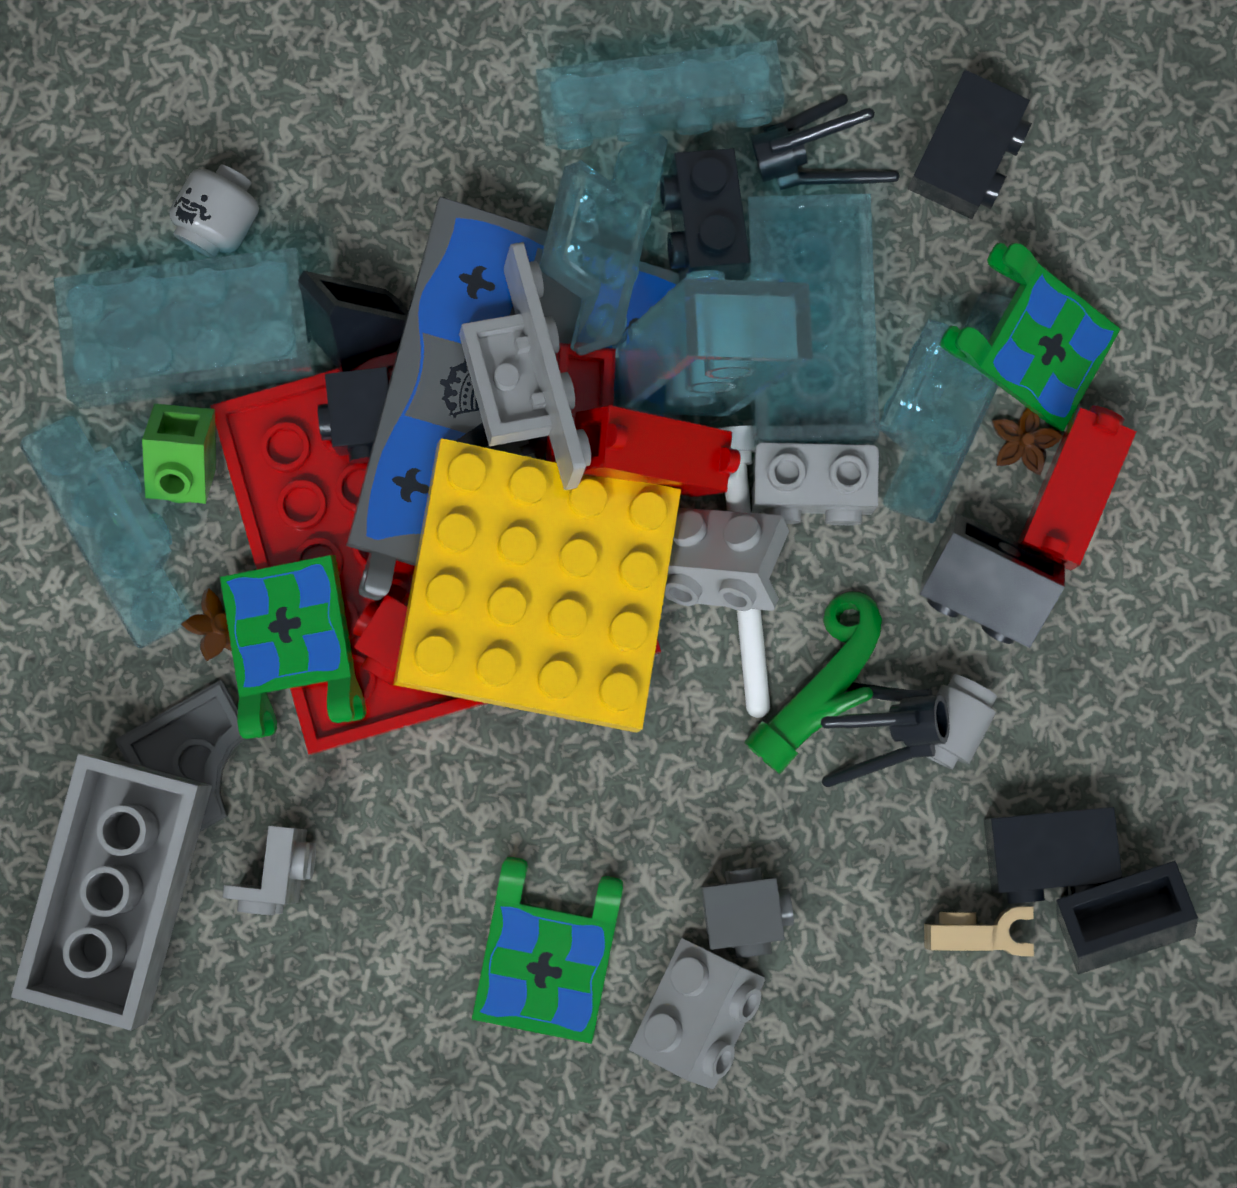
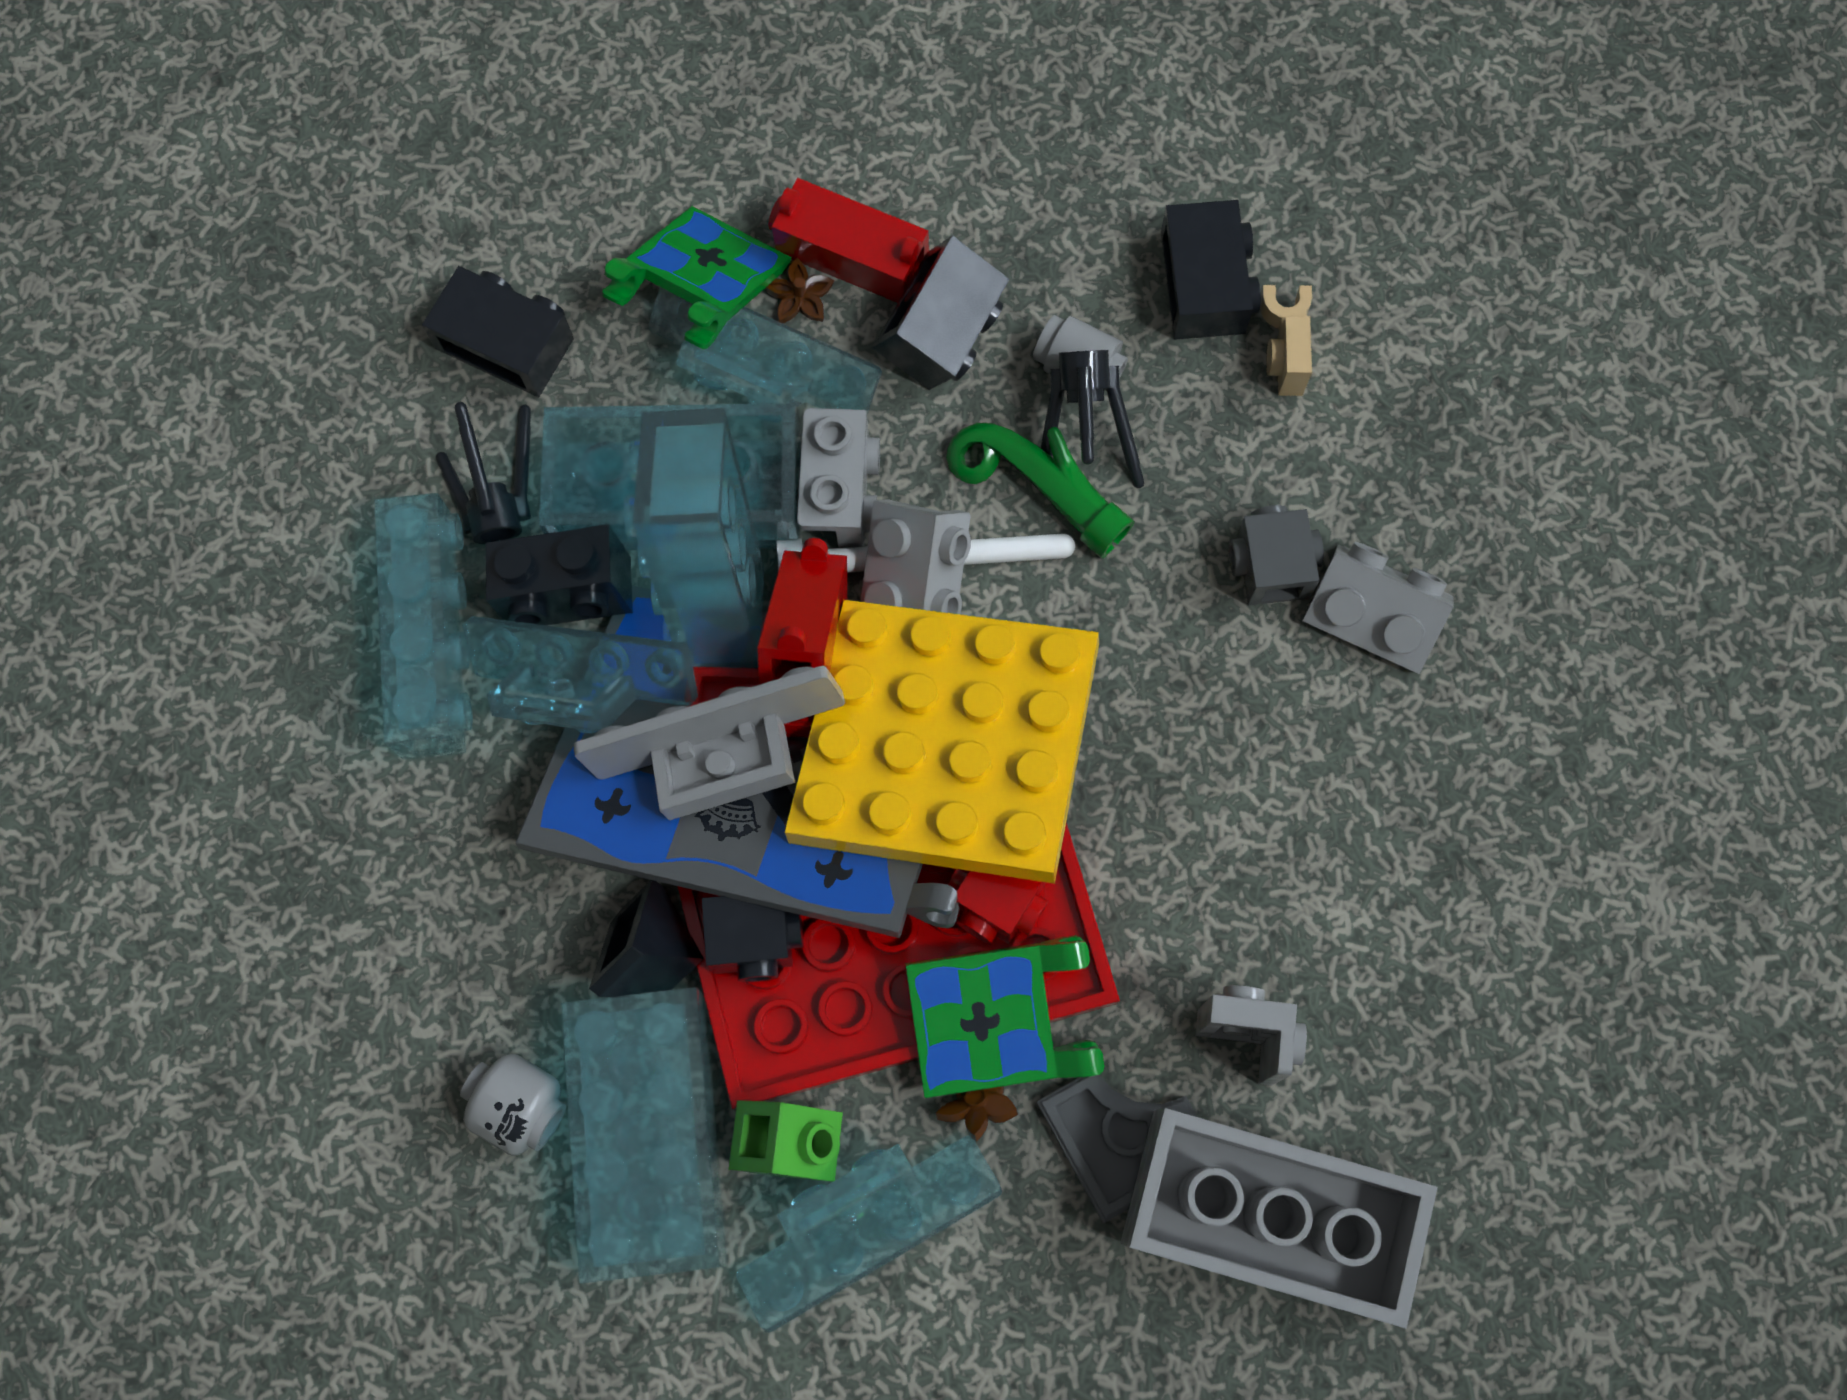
camera: 85 degrees left, 10 degrees down
(545, 964) = (1332, 758): green flag -> none
(1126, 917) = (1272, 199): black brick -> none

